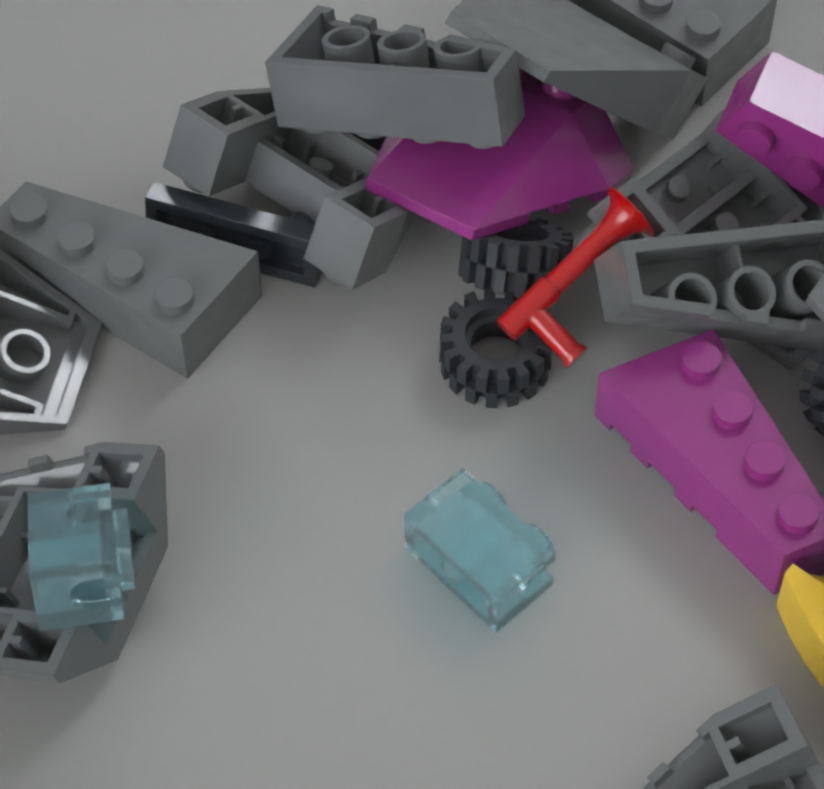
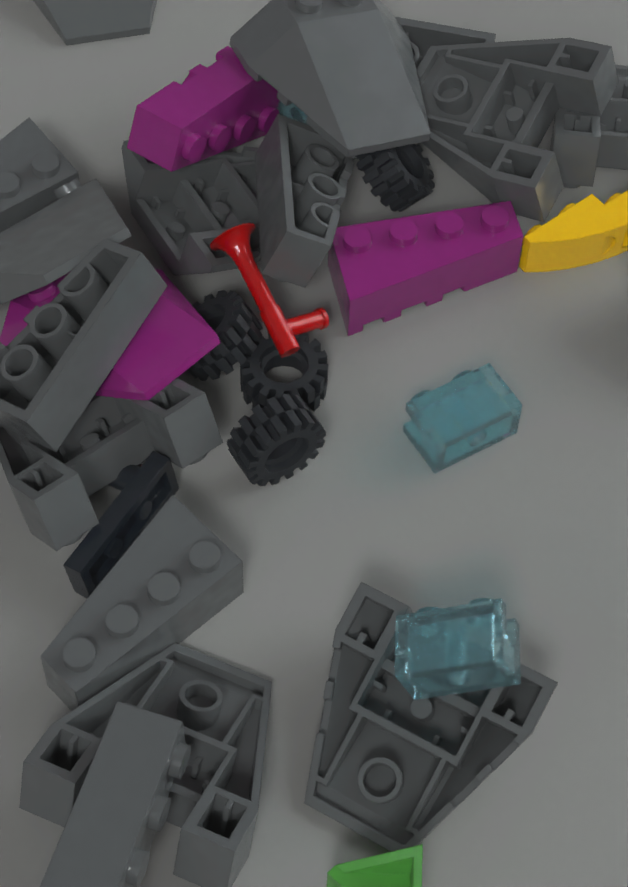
camera: 80 degrees left, 0 degrees up
(373, 344) = (276, 440): none -> black tyre

